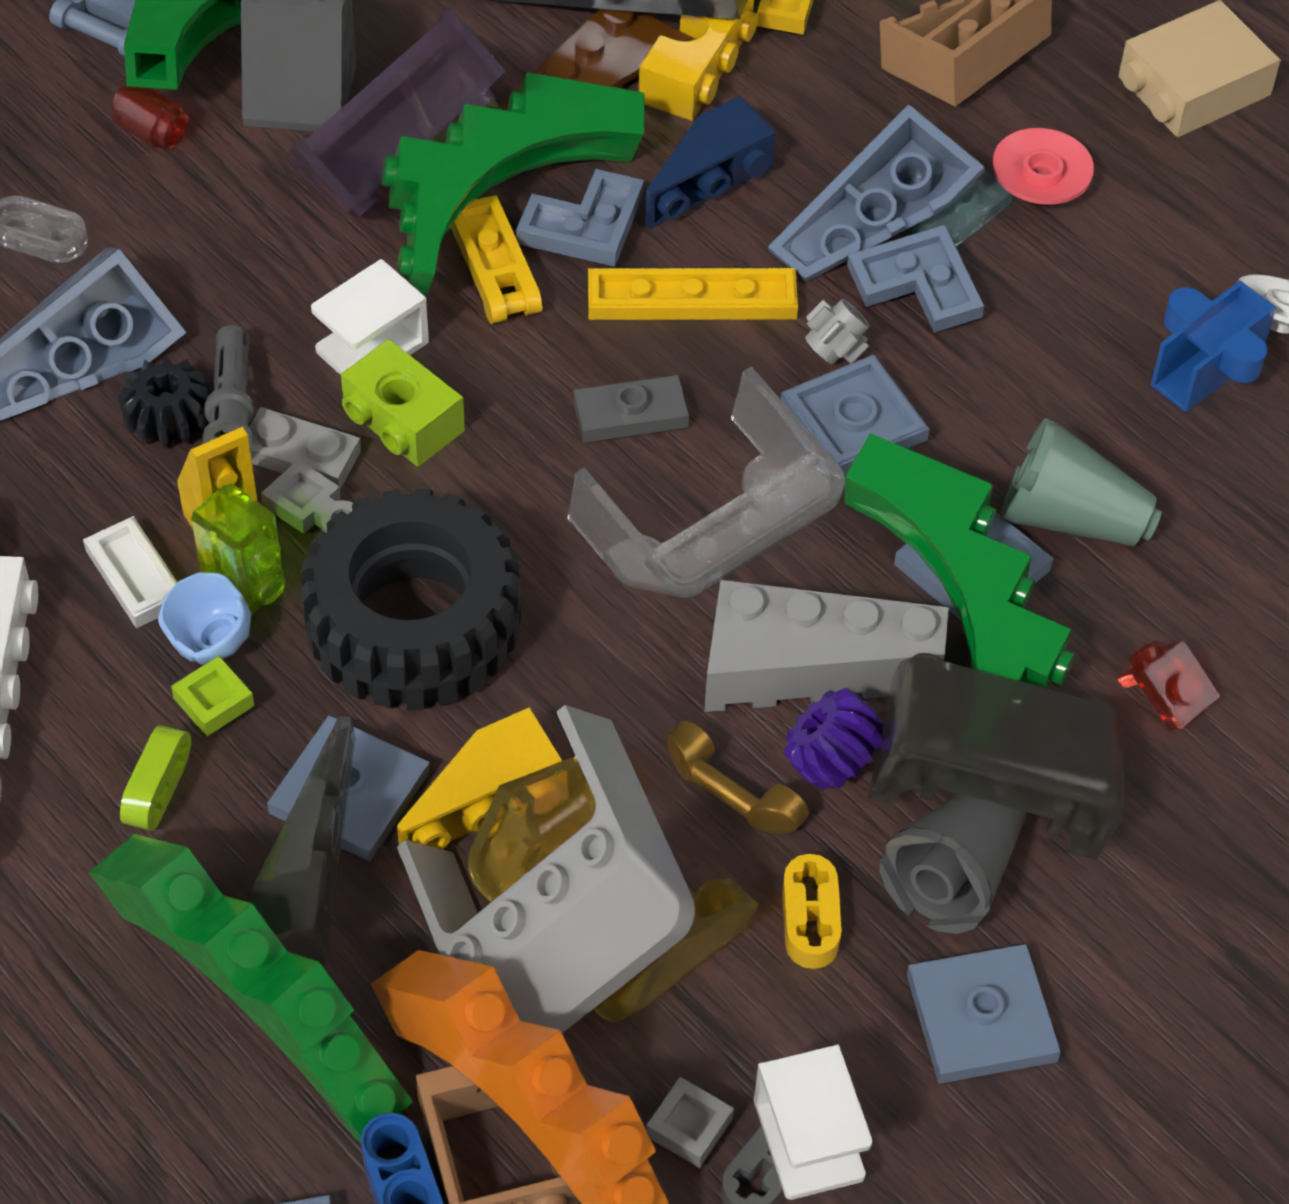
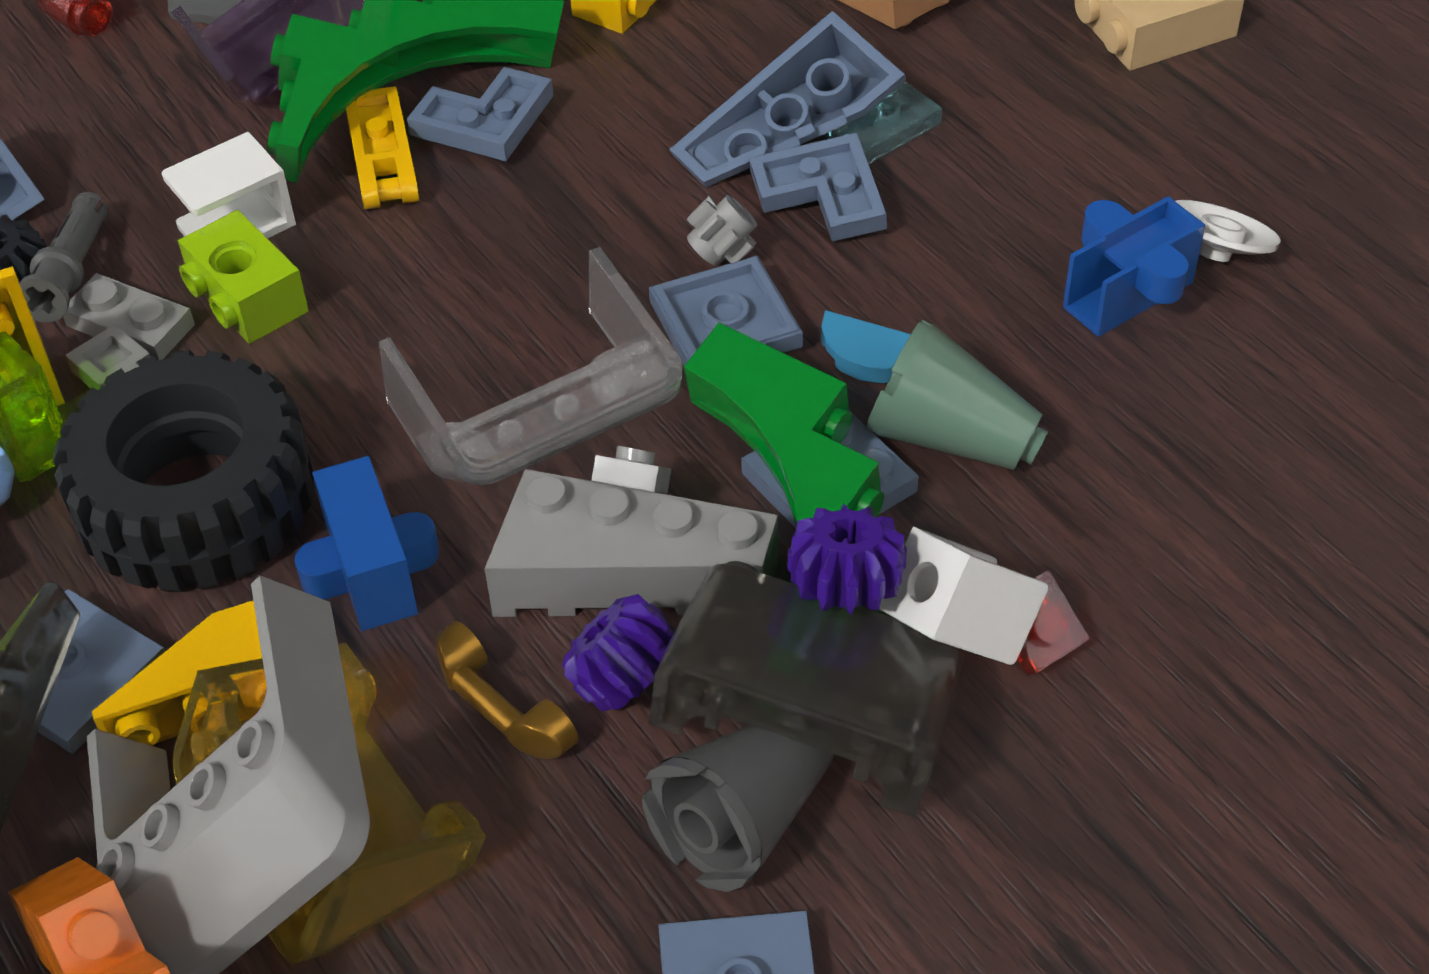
camera: 10 degrees right, 5 degrees down
(584, 655) = (365, 547): none -> blue piece
(630, 408) = (486, 297): dark grey plate -> none
(692, 294) = (581, 191): yellow tile -> none
(714, 156) = (623, 65): dark blue slope -> none
(813, 573) = (632, 469): none -> plate
(823, 910) = (544, 848): yellow beam -> none
(985, 439) = (861, 347): none -> dark azure tile
(1025, 647) = (847, 558): none -> dark purple gear
(1043, 166) = (976, 85): coral dish -> none
(1117, 671) = (965, 598): none -> white piece

